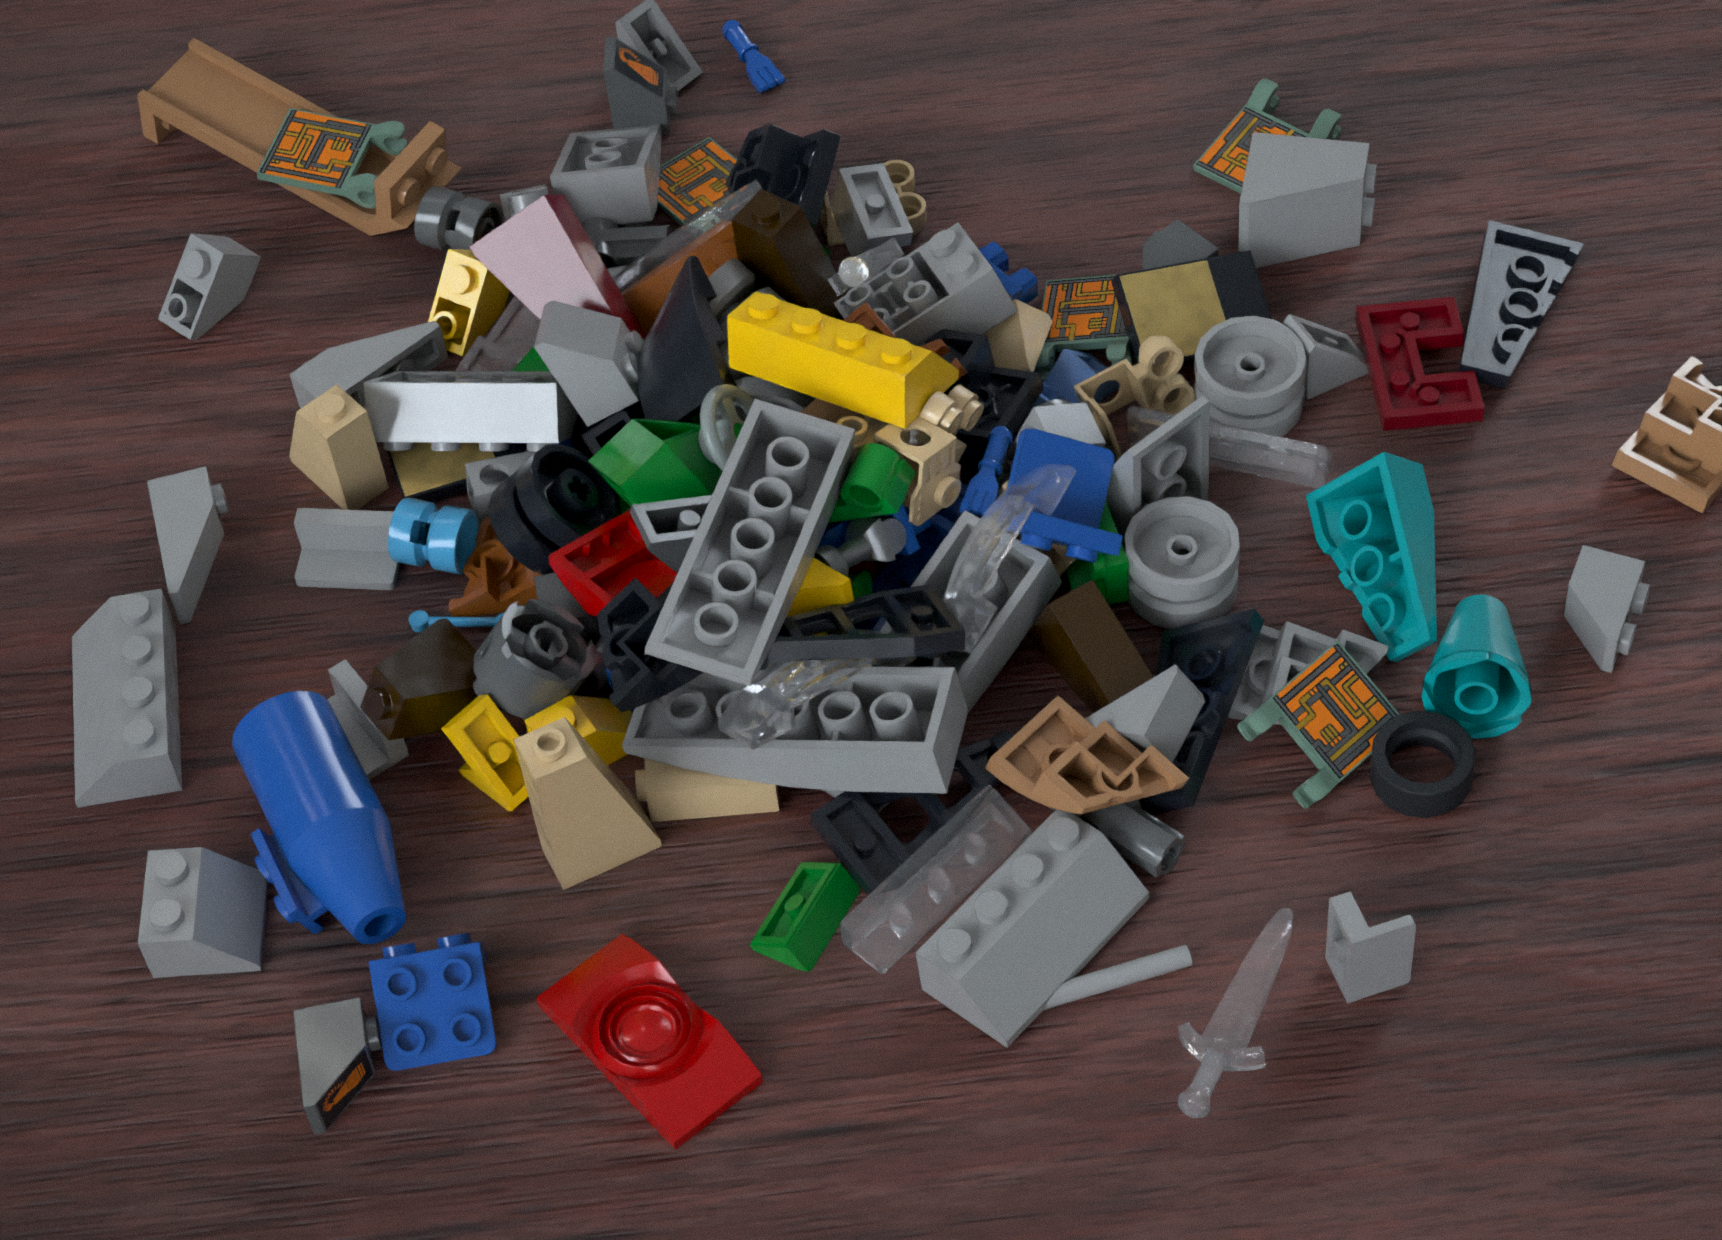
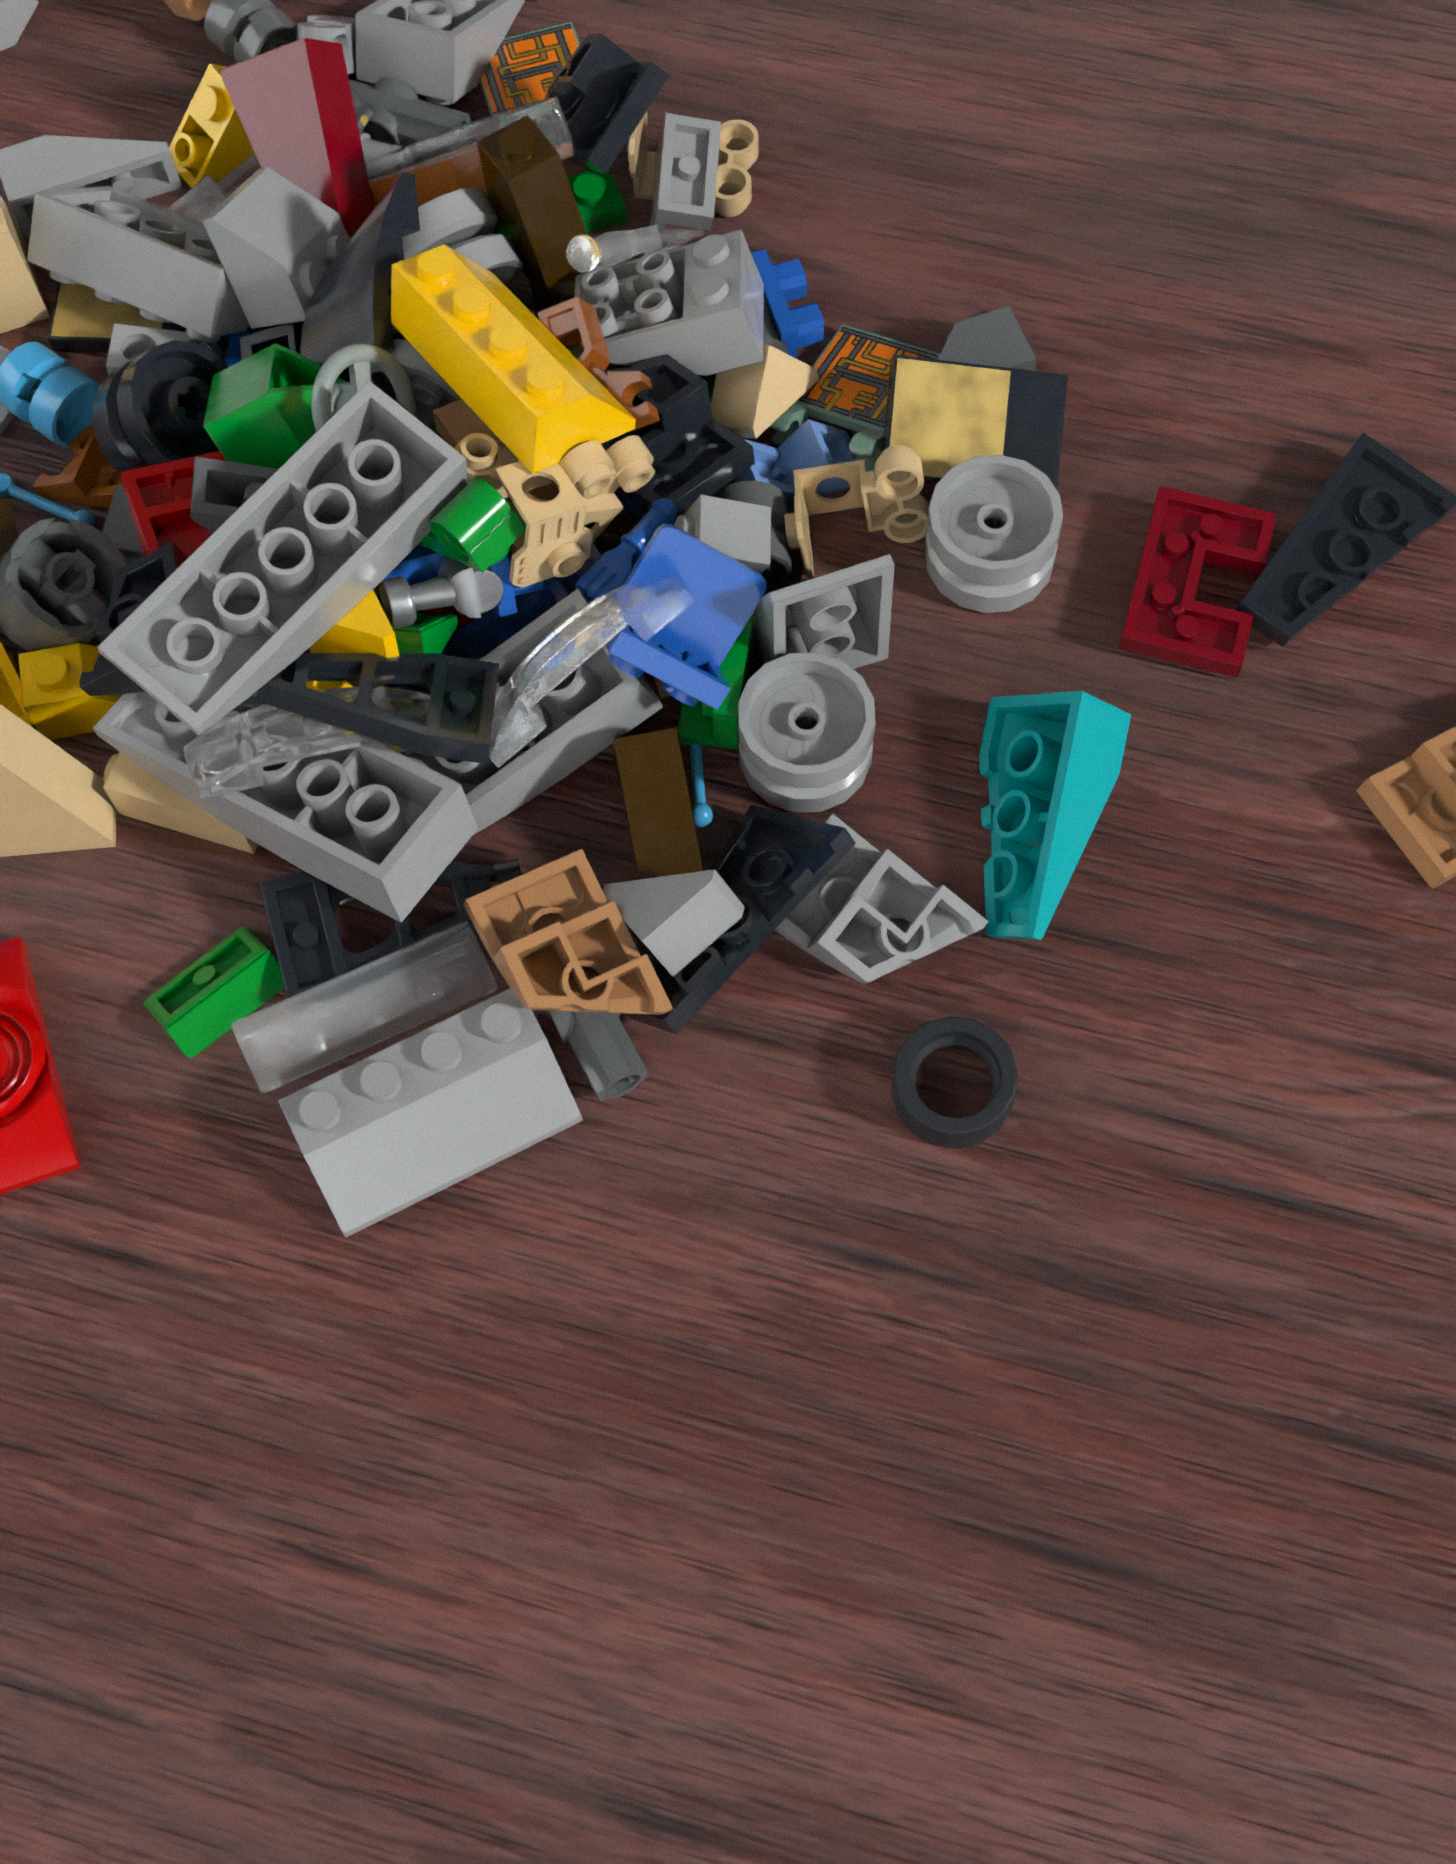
camera: 20 degrees right, 15 degrees up
(1121, 975) = (508, 1201): light grey bar -> none
(1228, 154) = (1159, 251): flag -> none
(1233, 1022) = (604, 1304): clear sword -> none
(1247, 450) = (942, 608): clear slope -> none
(1304, 197) = (1159, 329): light grey slope -> none
(1330, 356) = (1096, 531): light grey slope -> none
(1331, 716) = (875, 985): flag -> none
(1367, 957) = (761, 1313): light grey panel -> none
(1478, 670) = (1069, 992): teal cone -> none
(1601, 602) = (1256, 961): light grey slope -> none

